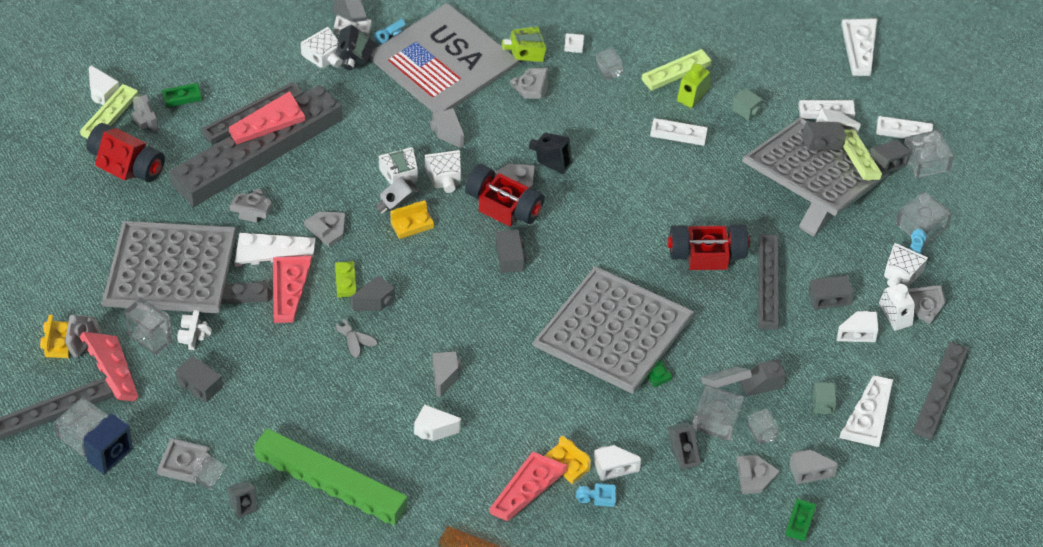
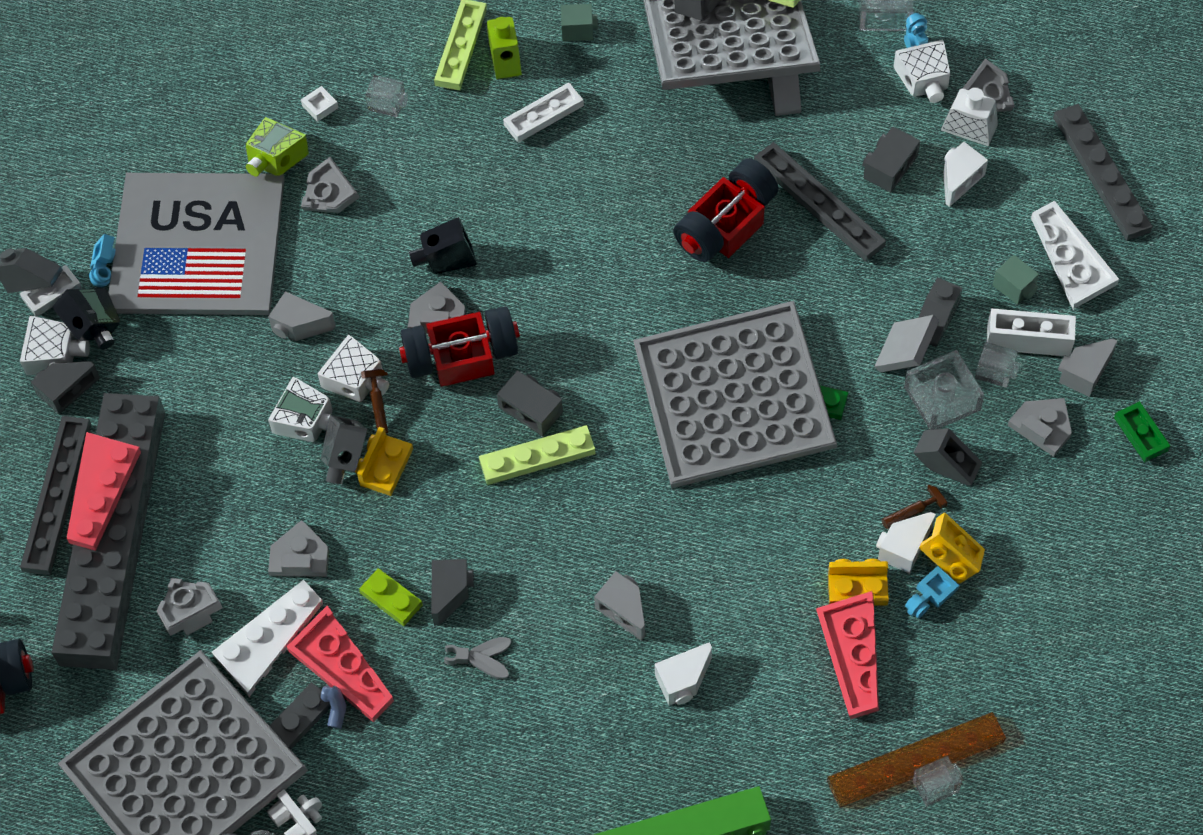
camera: 40 degrees left, 10 degrees up
(266, 301) = (337, 703): none -> sand blue arm
(311, 69) = (64, 382): none -> dark grey slope
(439, 190) = (376, 397): none -> reddish brown piece
(487, 277) = (537, 455): none -> yellowish green plate
(631, 483) = (953, 549): none -> yellow bracket
(643, 455) = (915, 508): none -> reddish brown piece
(798, 424) = (1032, 331): none -> white brick

